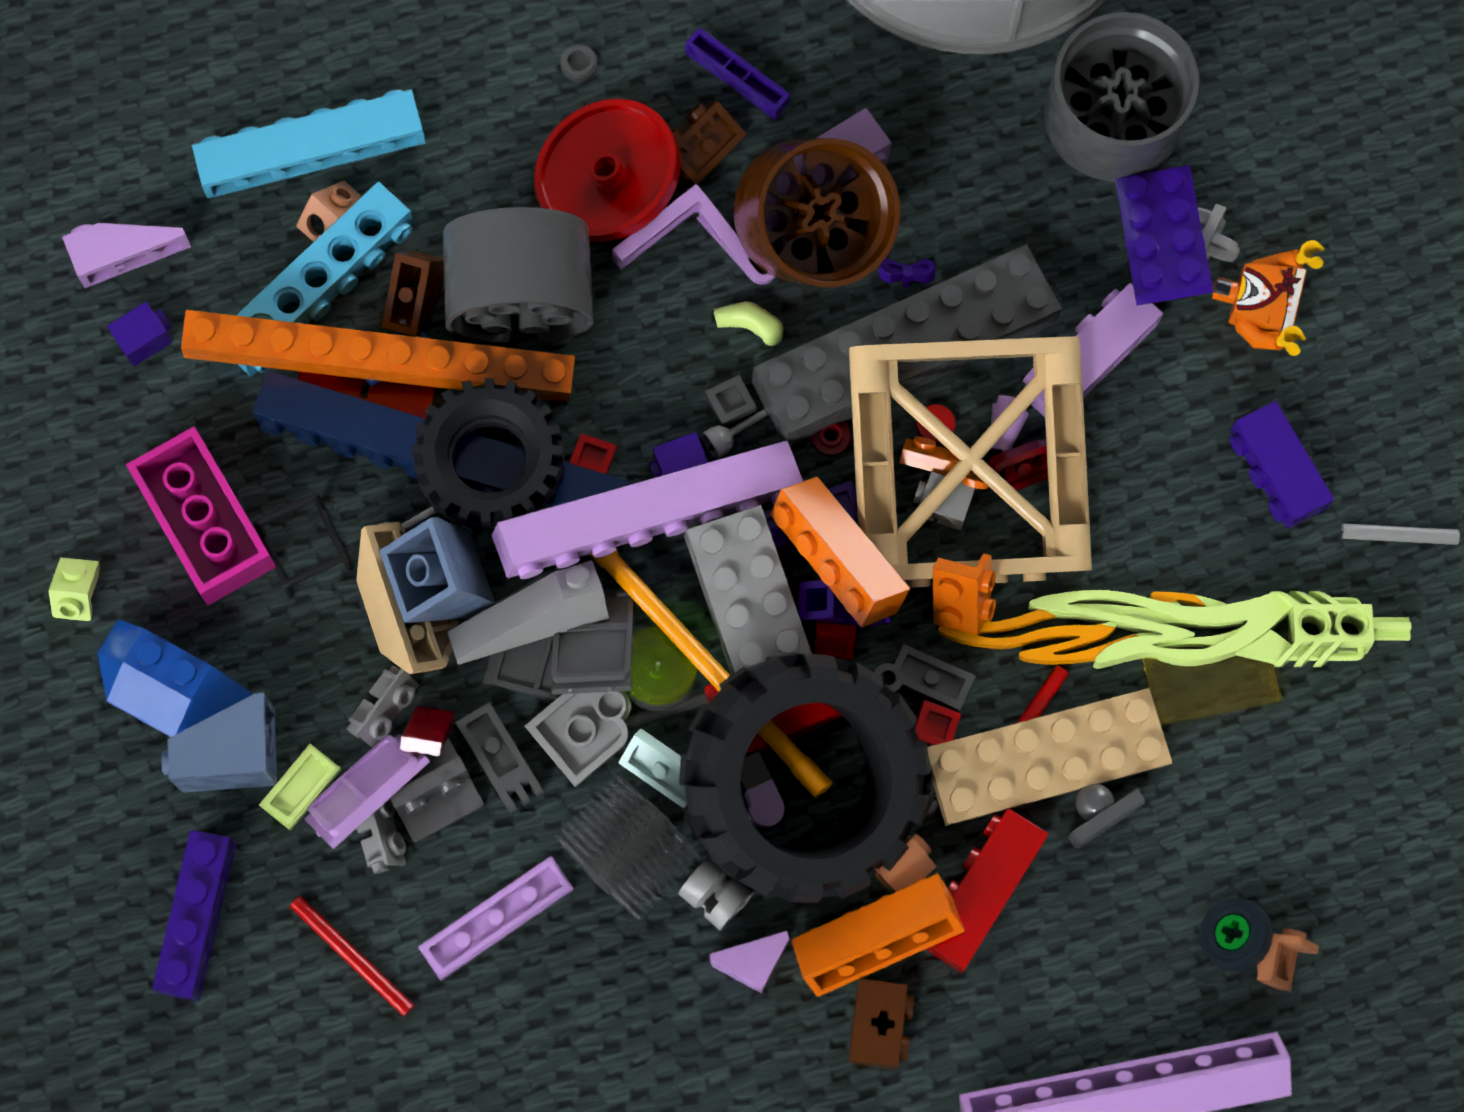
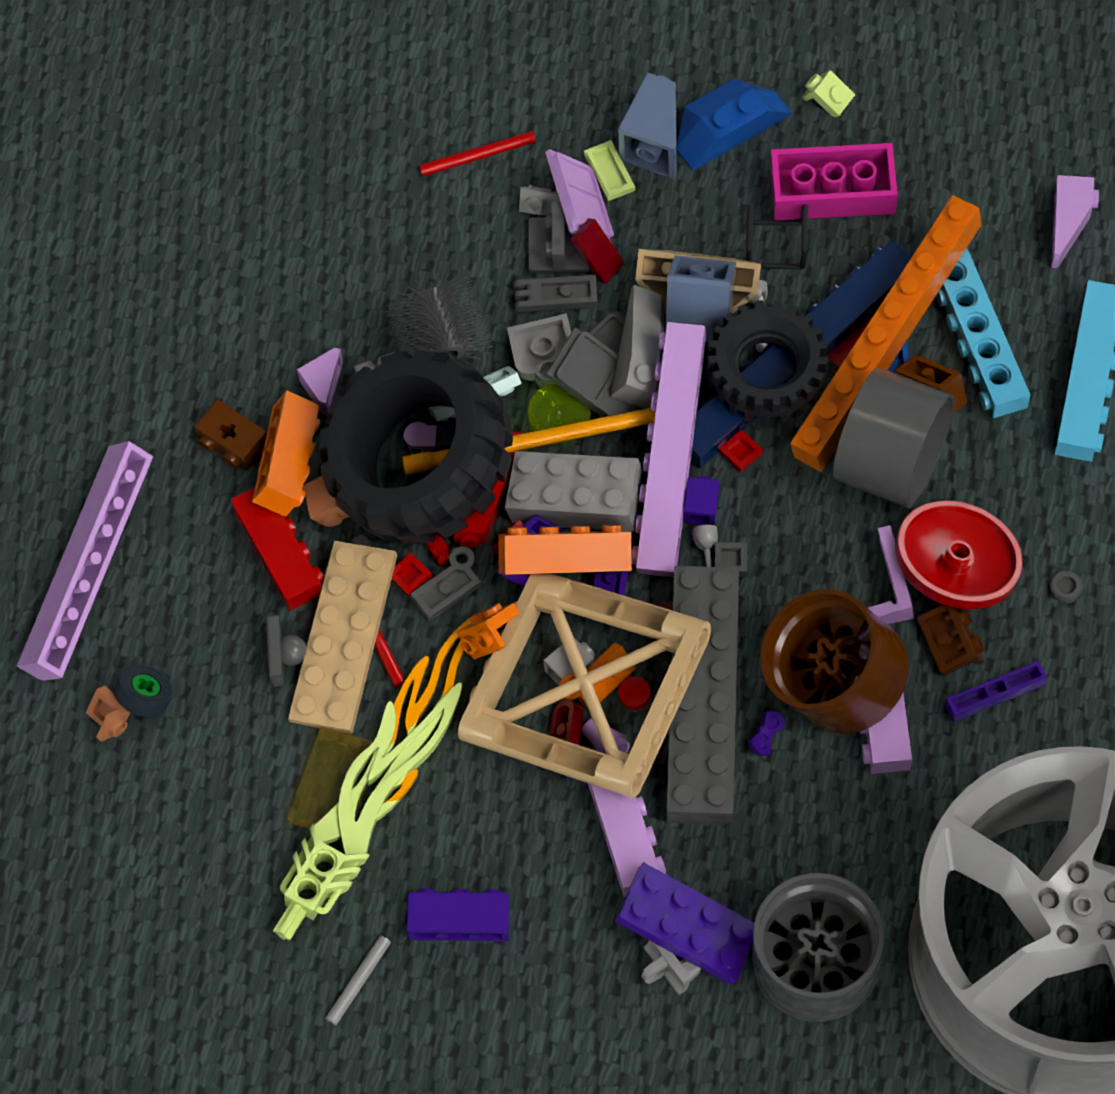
camera: 125 degrees right, 10 degrees down
(141, 333) = (995, 203): dark purple brick -> none
(194, 916) = (556, 70): dark purple brick -> none
(328, 205) = (1033, 366): nougat bracket -> none
(394, 692) = (629, 231): light grey hinge -> none
(496, 918) = (449, 241): lavender tile -> none
(751, 317) = (771, 609): yellowish green arm -> none
(1269, 297) = (593, 979): torso -> none

